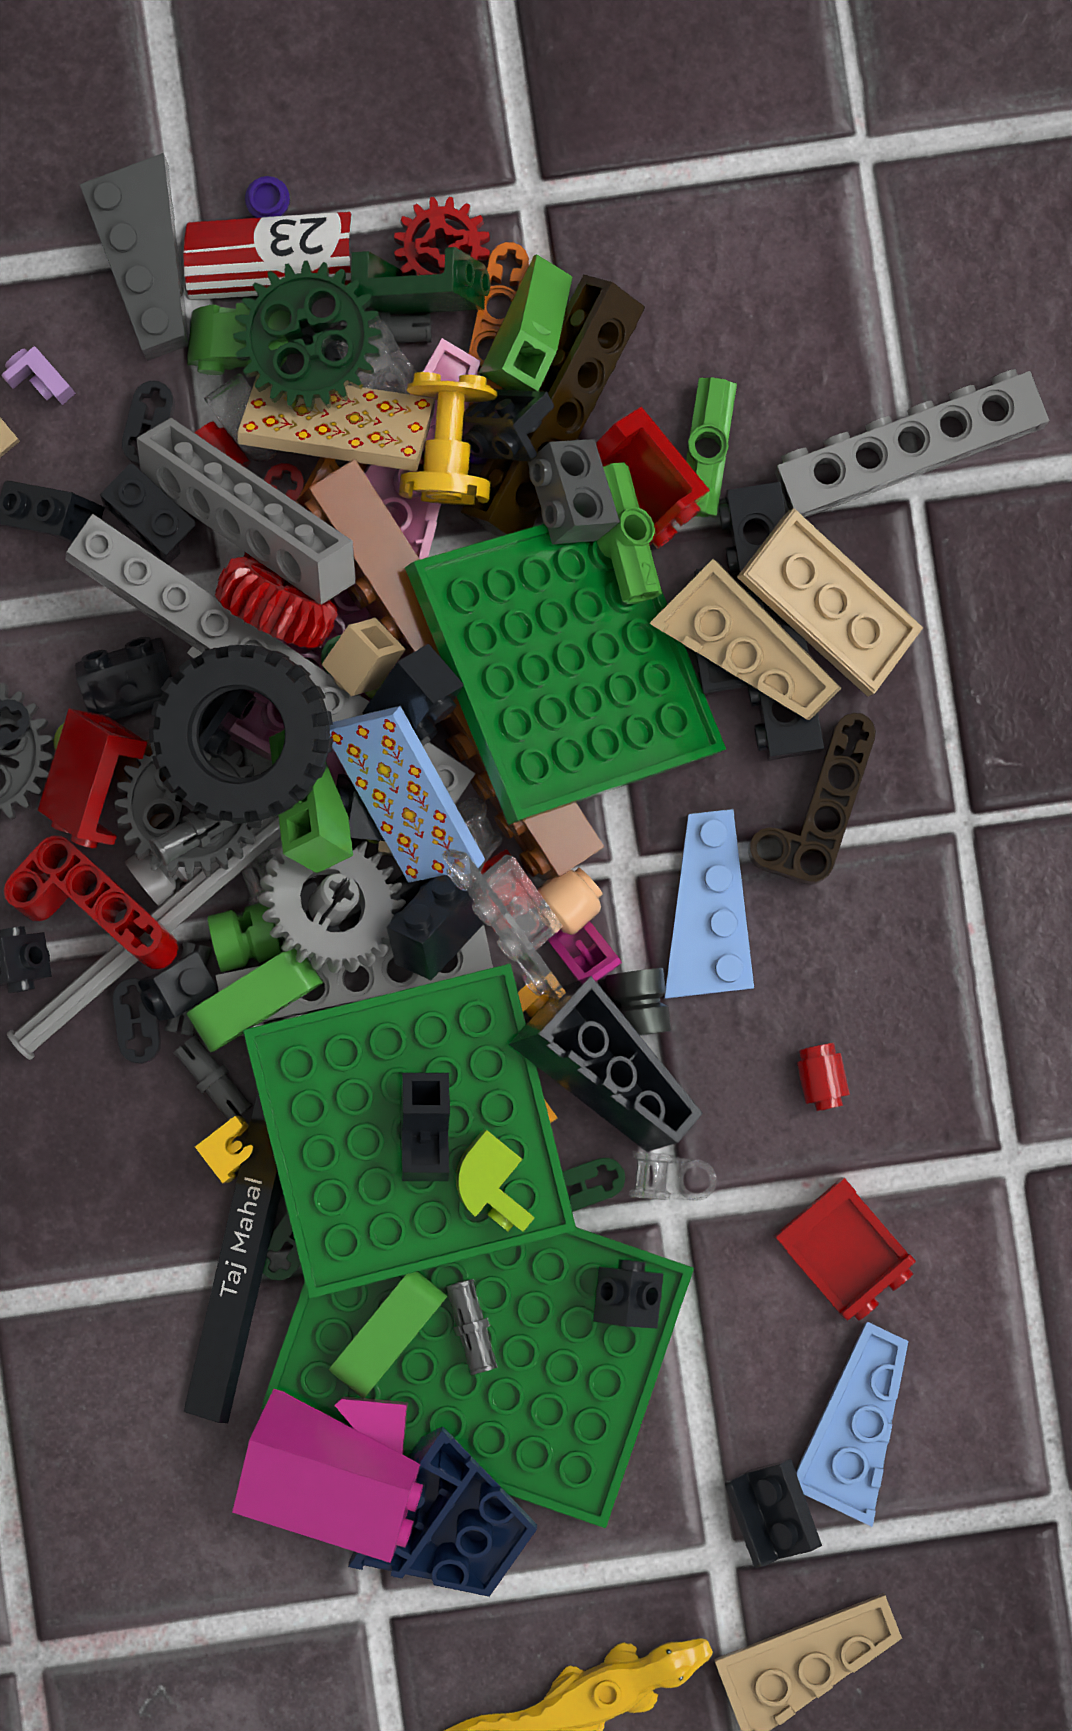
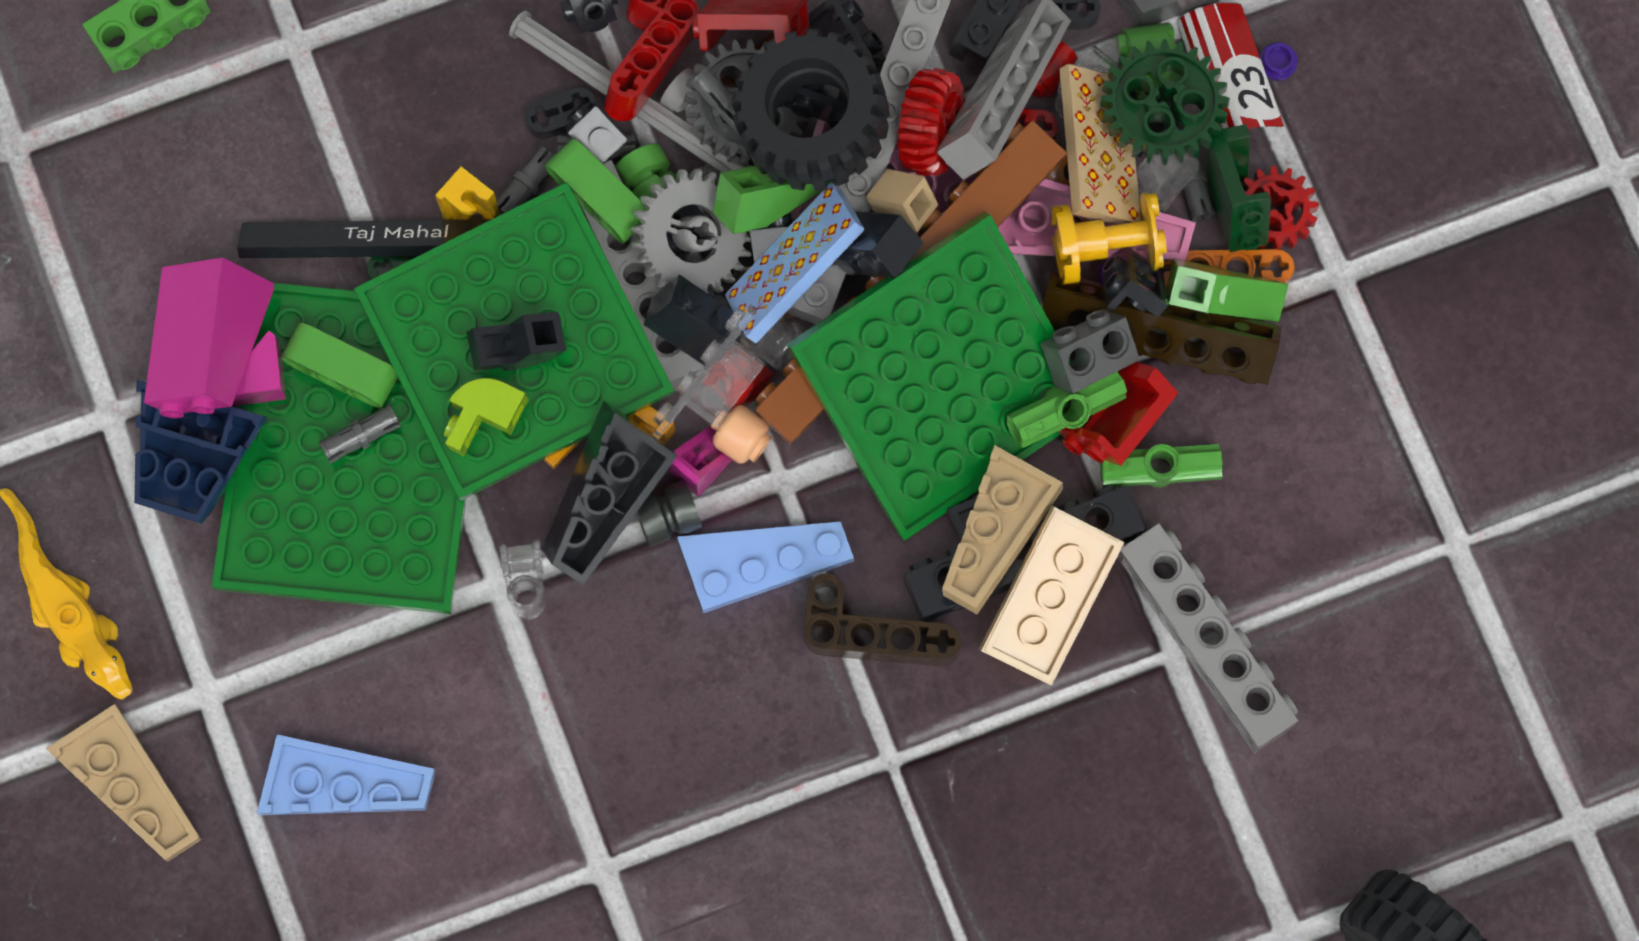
camera: 75 degrees right, 10 degrees down
(597, 1193) = (494, 512): dark green beam -> none
(628, 1295) = (412, 554): black brick -> none
(772, 1513) = (251, 723): black bracket -> none
(822, 1076) = (639, 684): red brick -> none
(846, 1250) = (493, 738): red panel -> none

